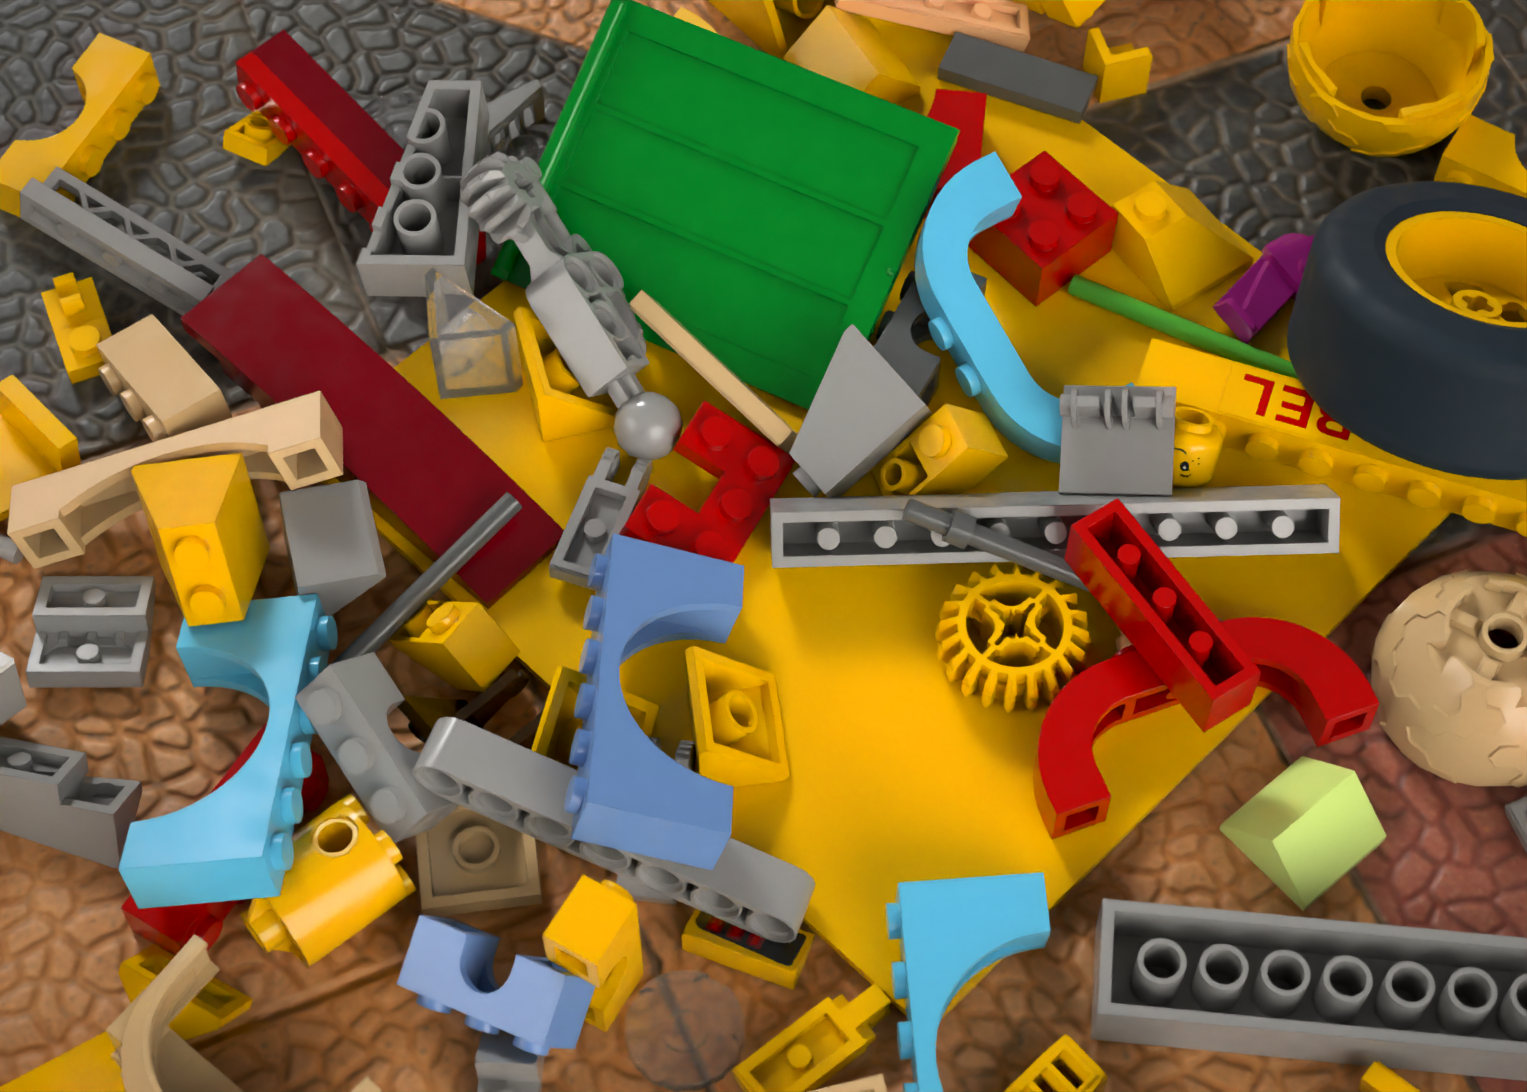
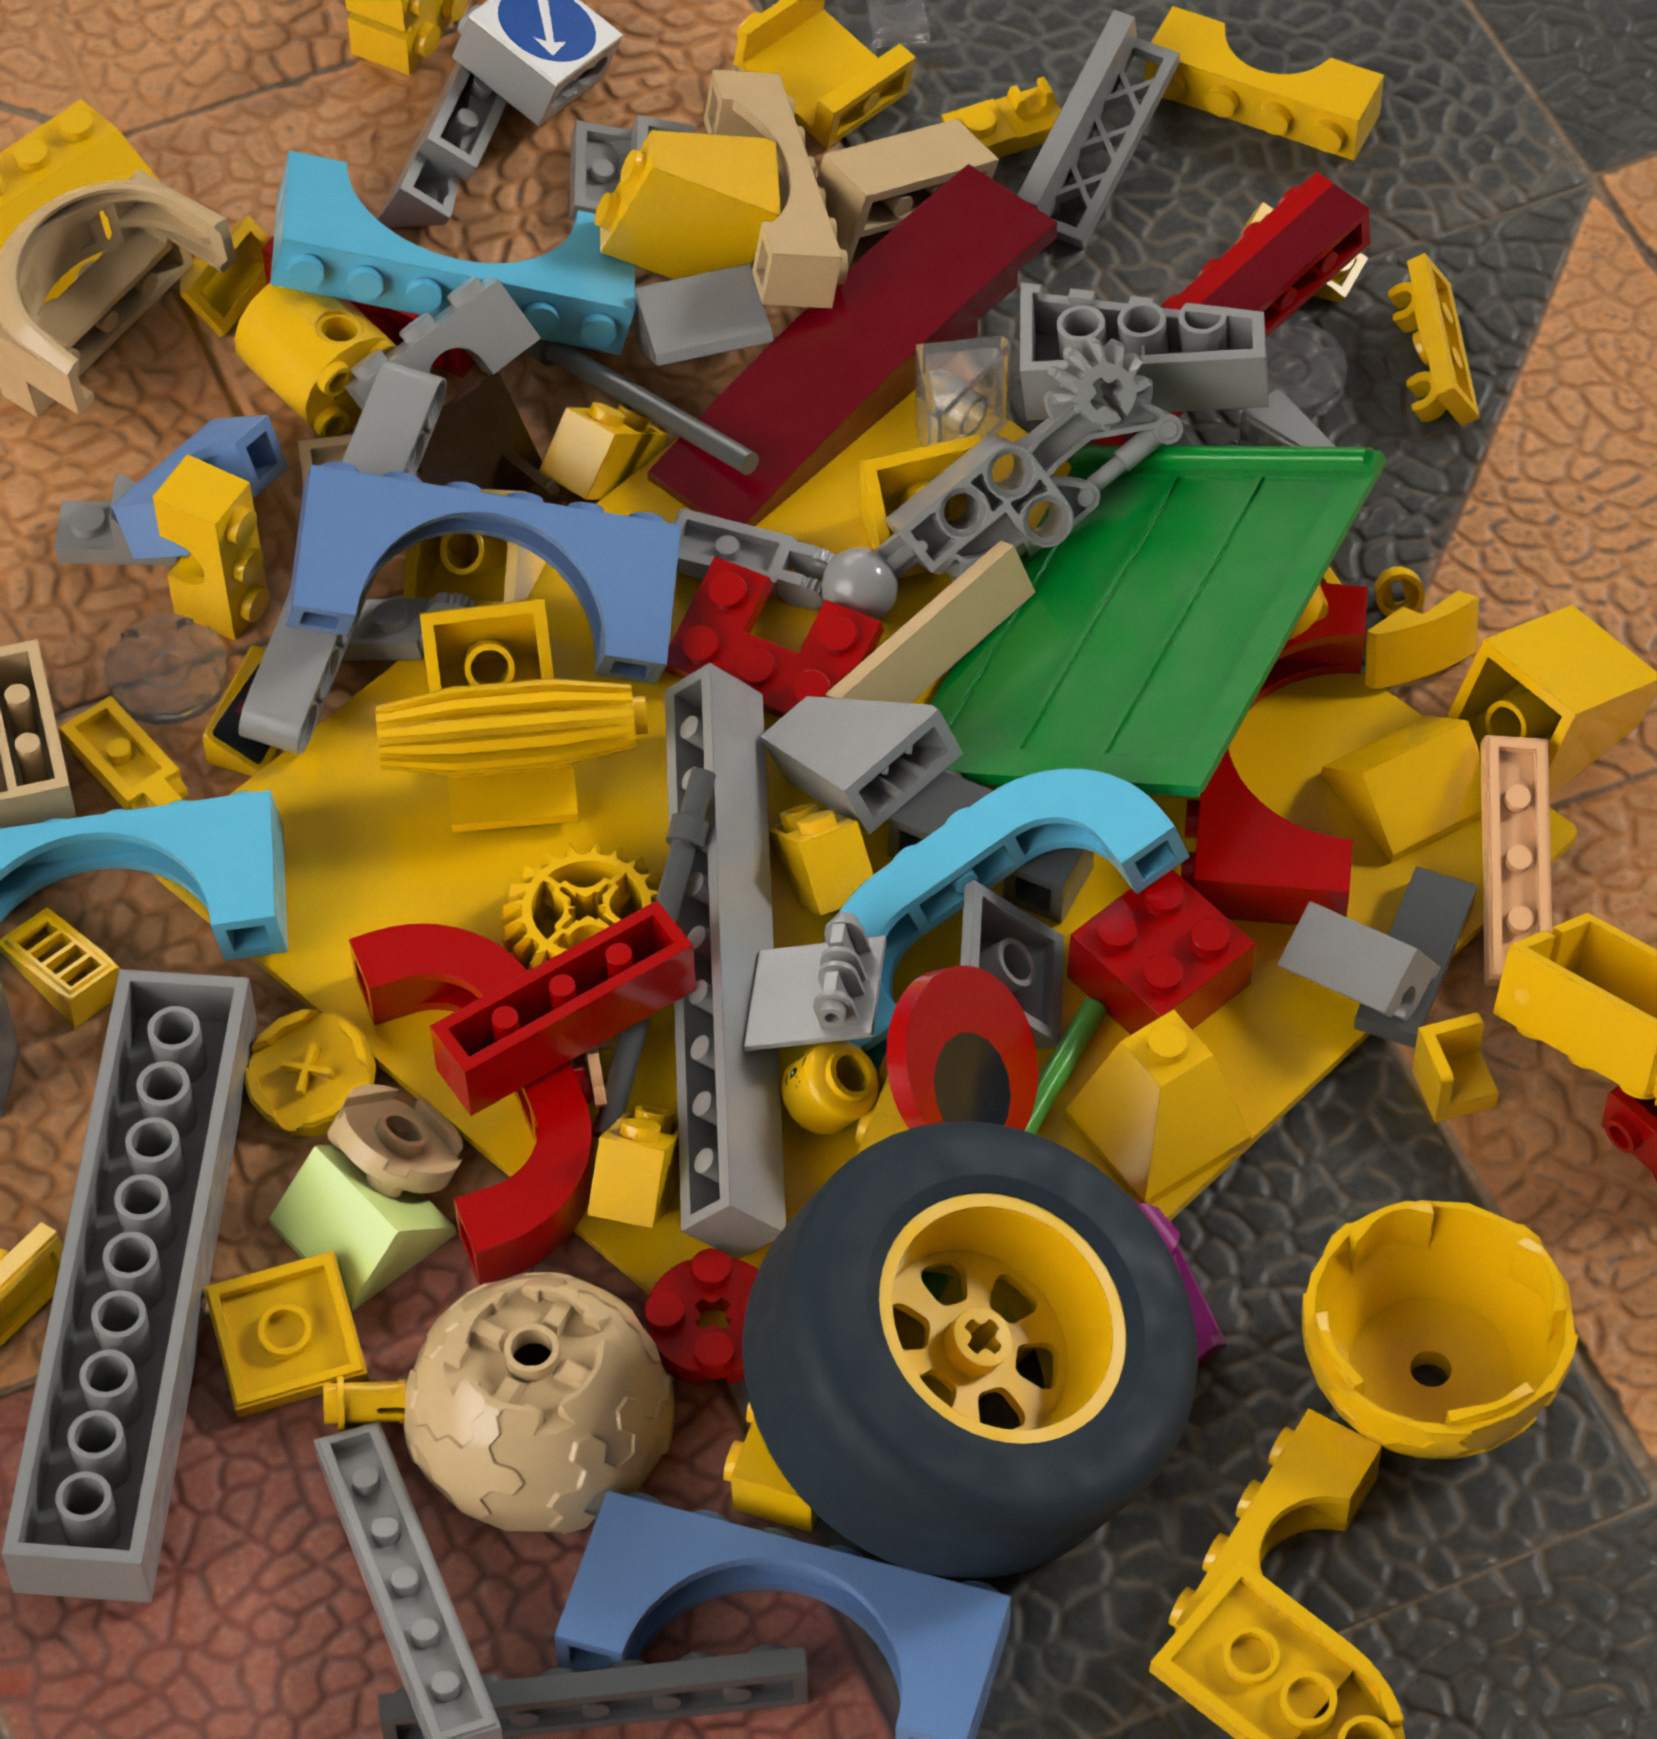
camera: 90 degrees right, 5 degrees down
(389, 30) = (1437, 342): none -> yellow plate
(838, 686) = (510, 744): none -> yellow plate
(1046, 99) = (1358, 962): none -> light grey hinge
(1060, 340) = (1019, 953): none -> light grey slope
(1158, 863) = (306, 1070): none -> yellow tile
(1187, 336) = (961, 1051): none -> red piece
(1242, 788) = (396, 1142): none -> tan plate
(1265, 585) = (636, 1167): none -> yellow slope
(1397, 521) = (675, 1312): none -> red plate
(1431, 876) = (285, 1333): none -> yellow tile
(1492, 828) = (363, 1402): none -> yellow pin

